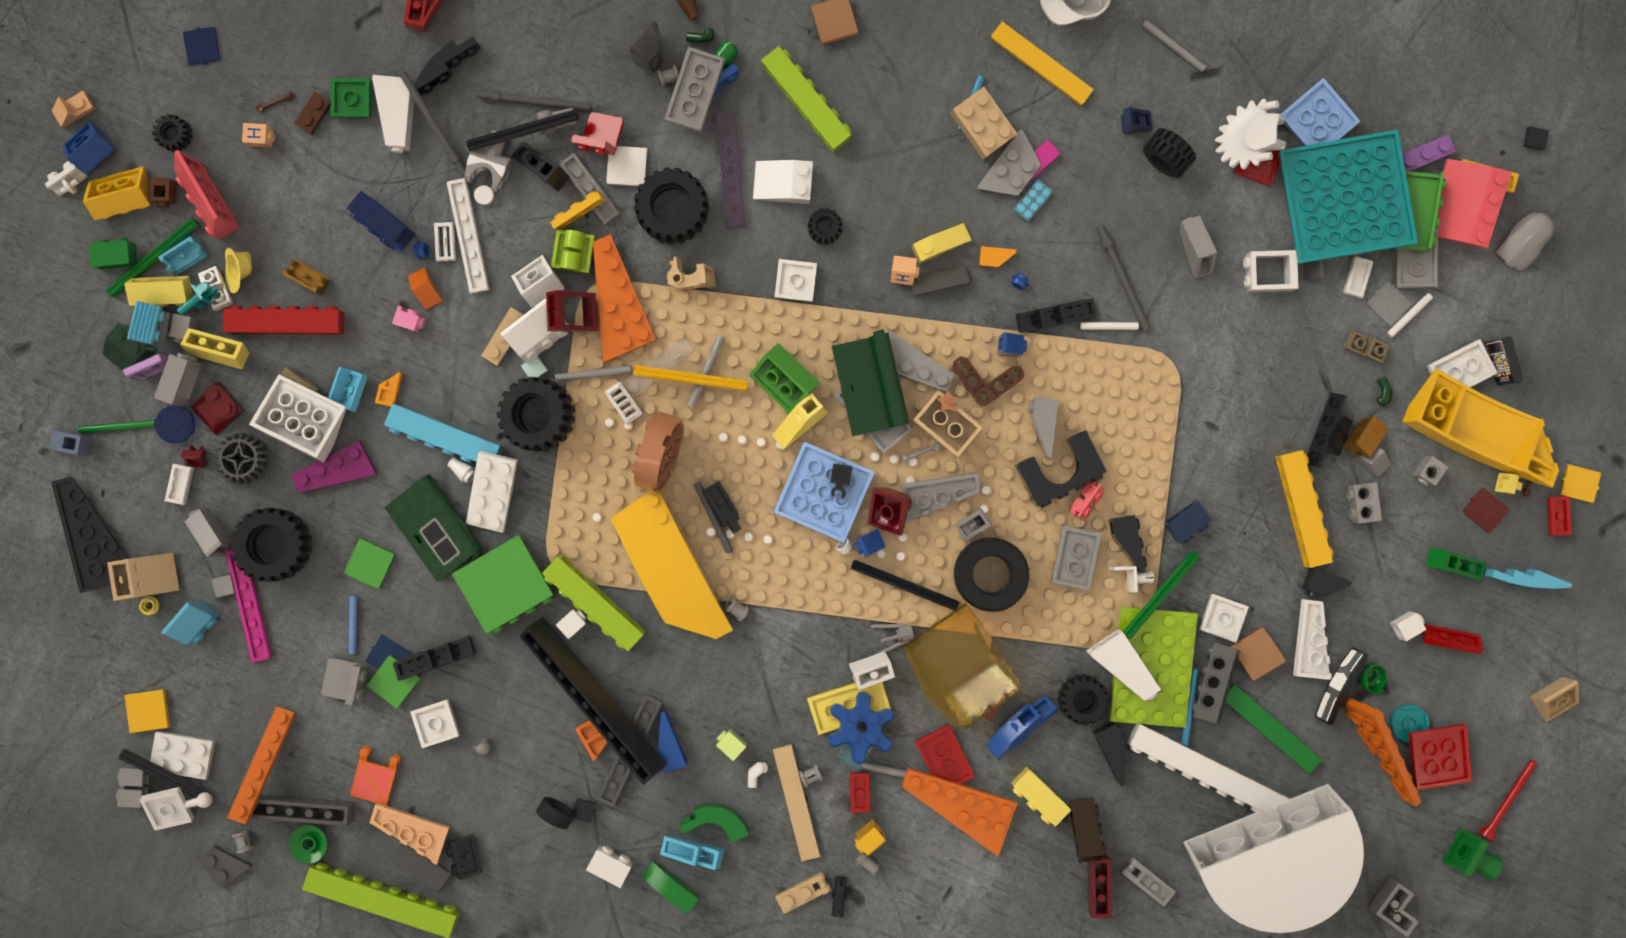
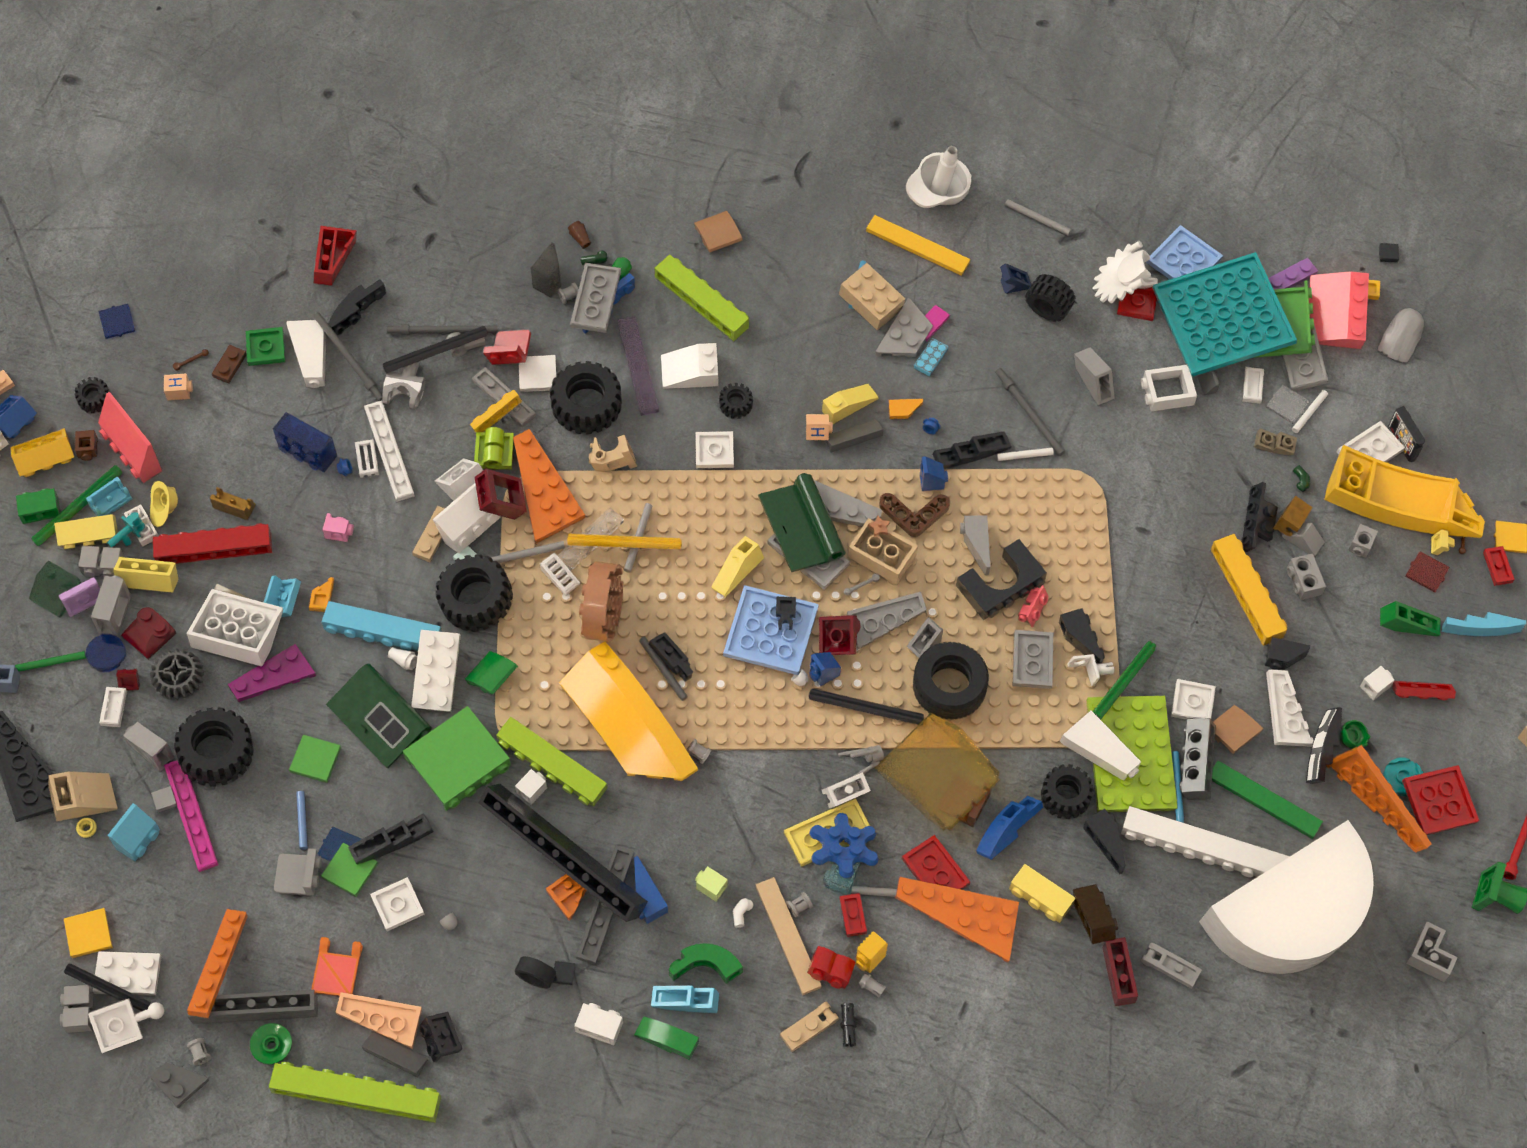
camera: 10 degrees left, 25 degrees down
(146, 323) = (78, 553): medium azure brick -> none
(424, 288) = (351, 501): orange slope -> none
(484, 195) = (401, 413): white tile -> none
(540, 166) = (457, 381): black slope -> none
(545, 500) = (491, 672): none -> green slope
(783, 378) = (714, 531): bright green slope -> none
(831, 843) = (831, 967): none -> red brick
(1187, 522) = (1137, 615): dark blue brick -> none

